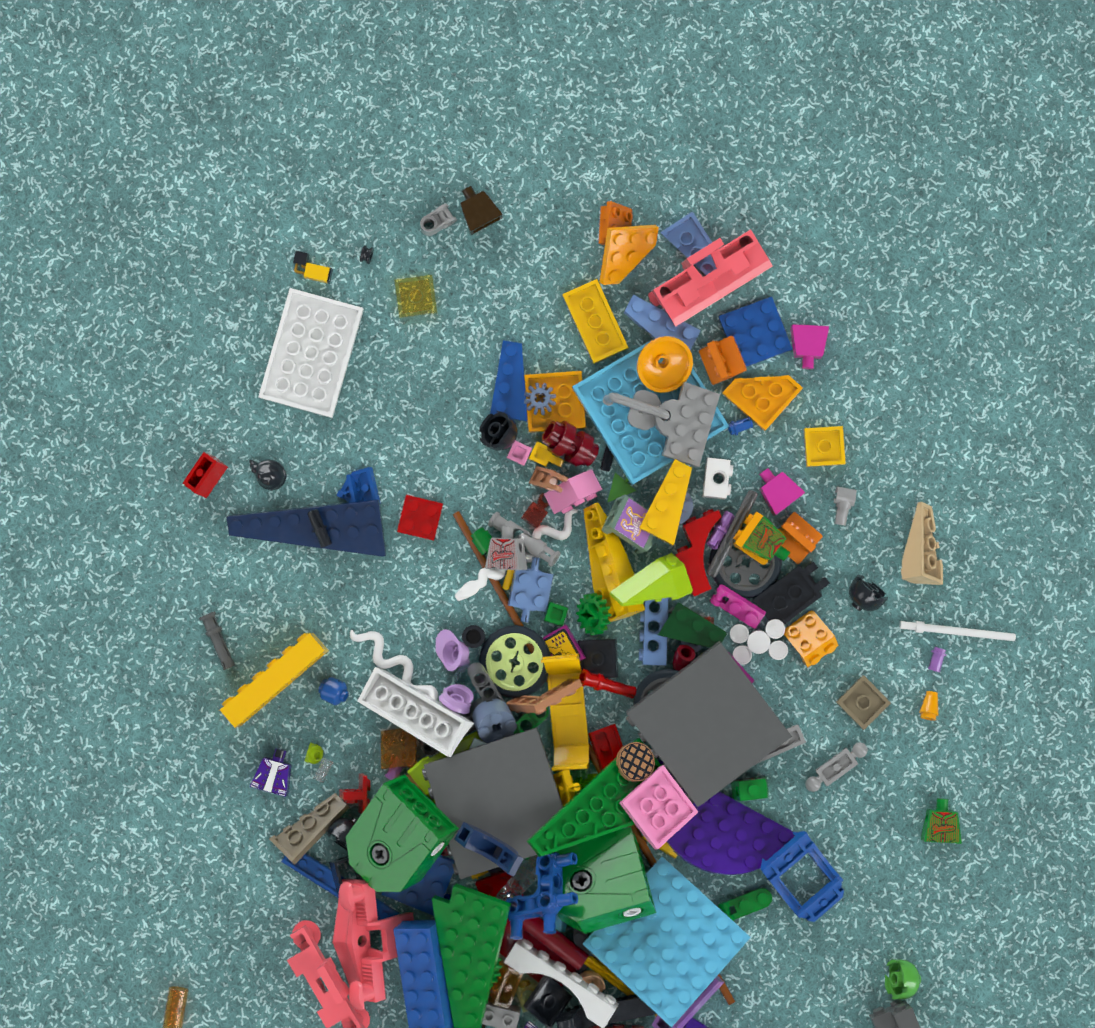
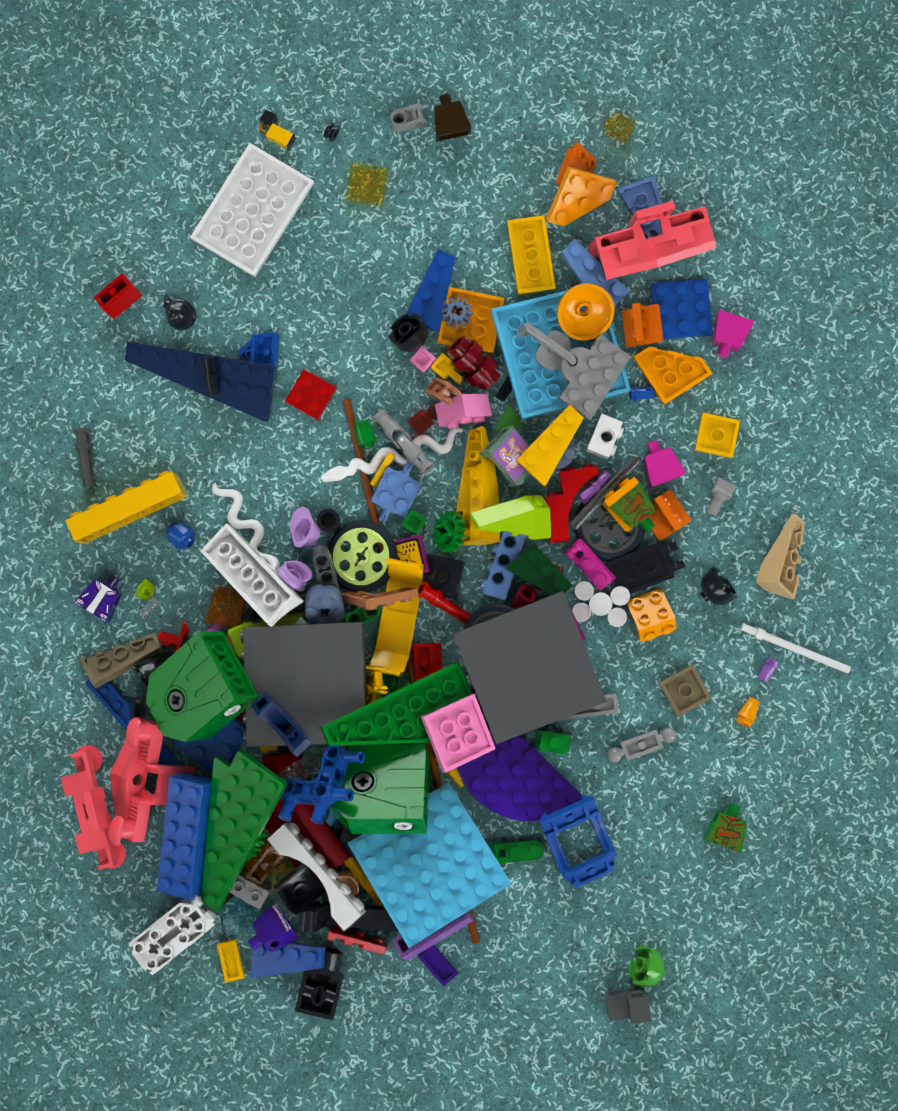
camera: 20 degrees right, 0 degrees up
(506, 552) = (382, 448): light grey torso -> none
(635, 762) = (448, 683): tile -> none
(652, 167) = (625, 122): none -> clear yellow brick

